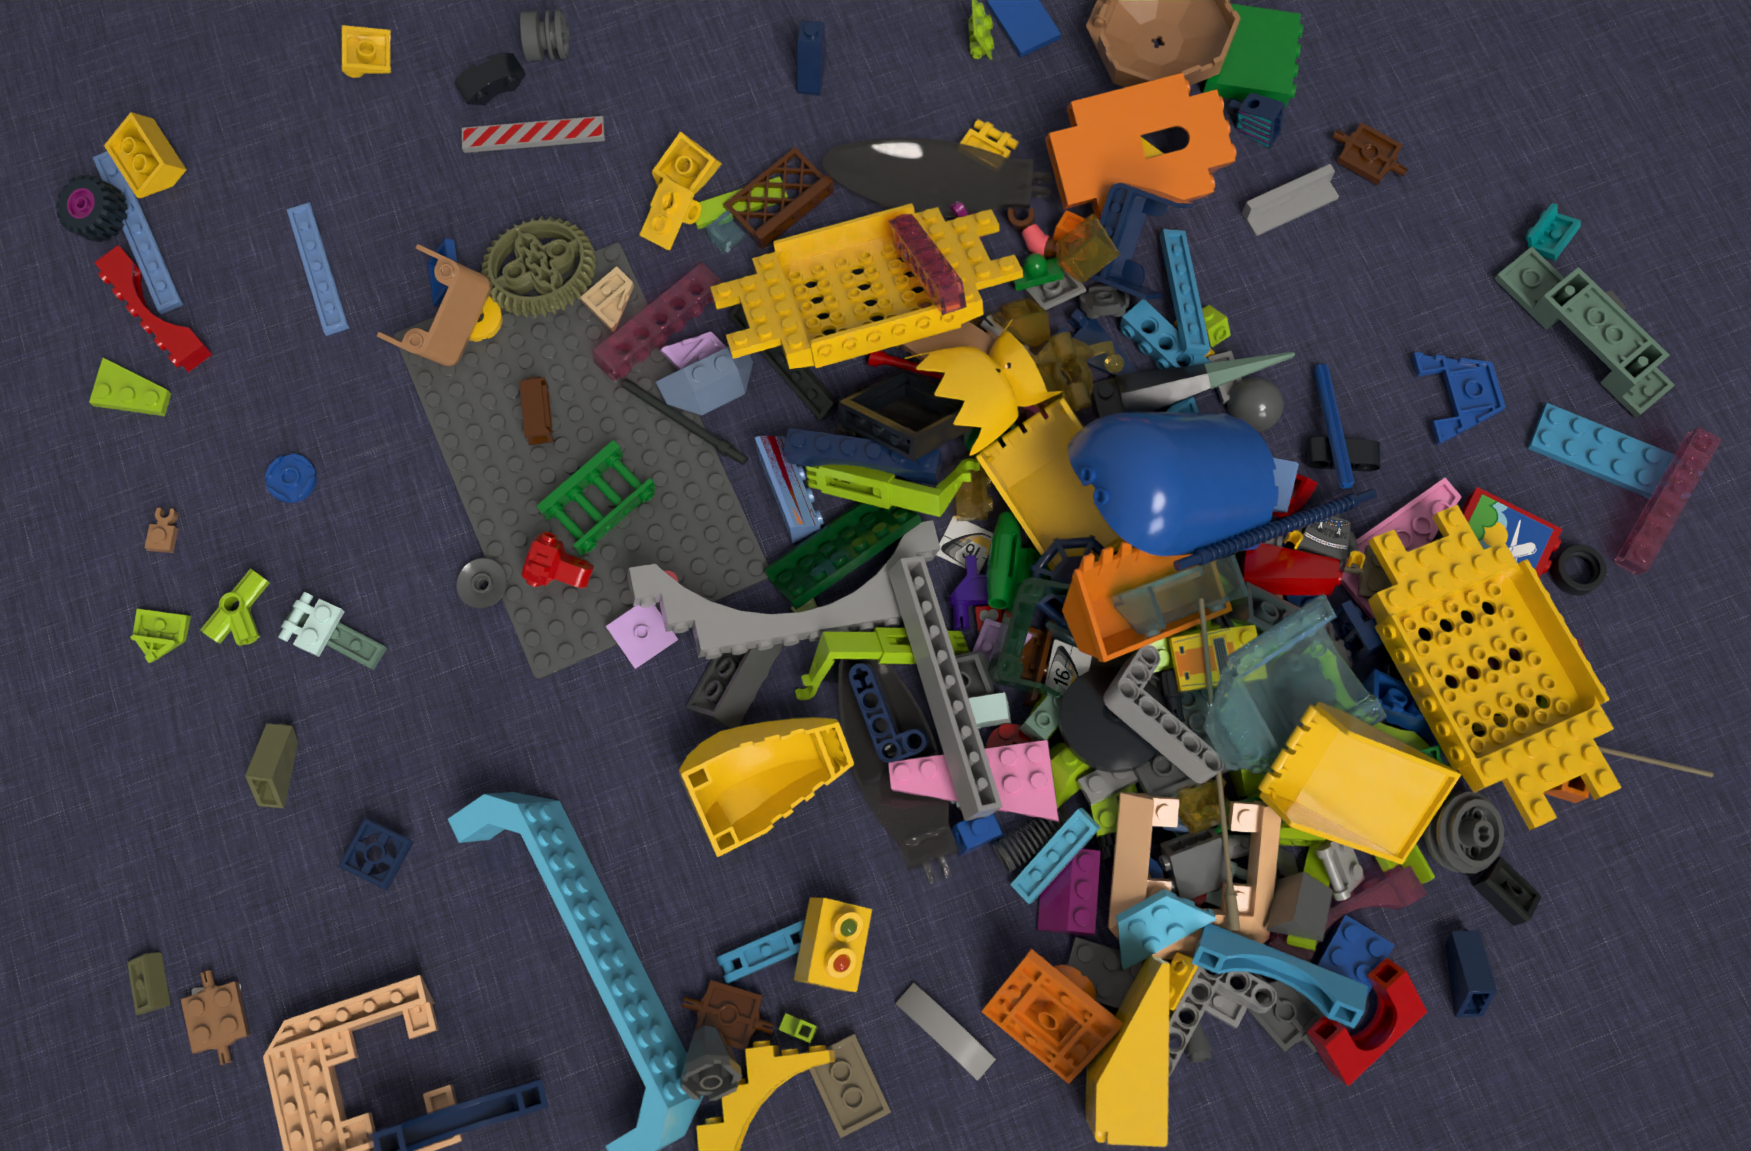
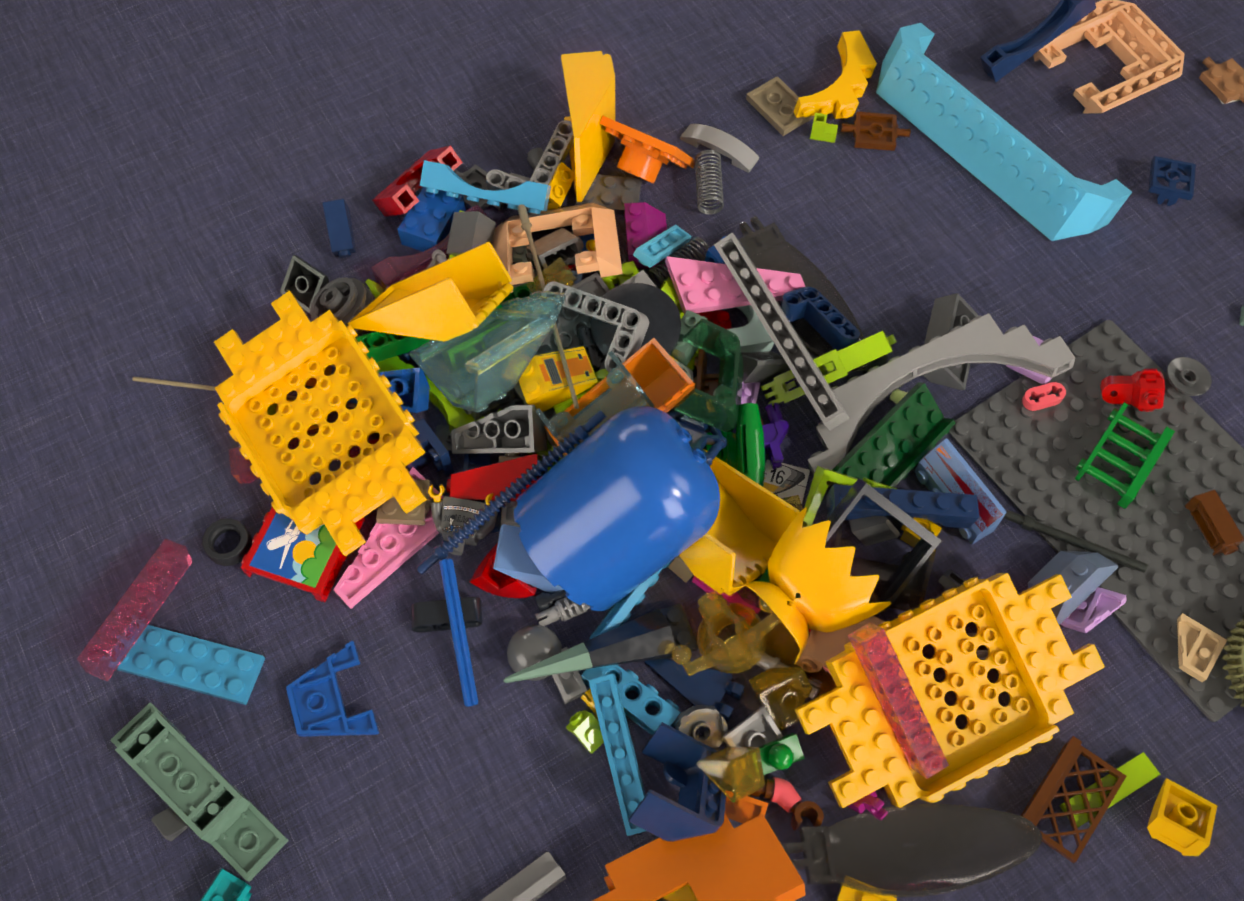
camera: 170 degrees right, 10 degrees down
(643, 324) = (1173, 581): clear pink brick -> none
(666, 219) = (1177, 754): yellow piece -> none
(709, 1066) = (882, 88): dark grey cone -> none
(725, 232) = (1112, 746): clear light blue panel -> none
(759, 773) = (913, 255): yellow windscreen -> none
(761, 952) = (860, 170): dark azure plate -> none
(833, 944) = (815, 171): yellow piece -> none
(972, 924) = (713, 186): none -> dark grey piece
(1157, 924) = (580, 203): medium azure wing -> none

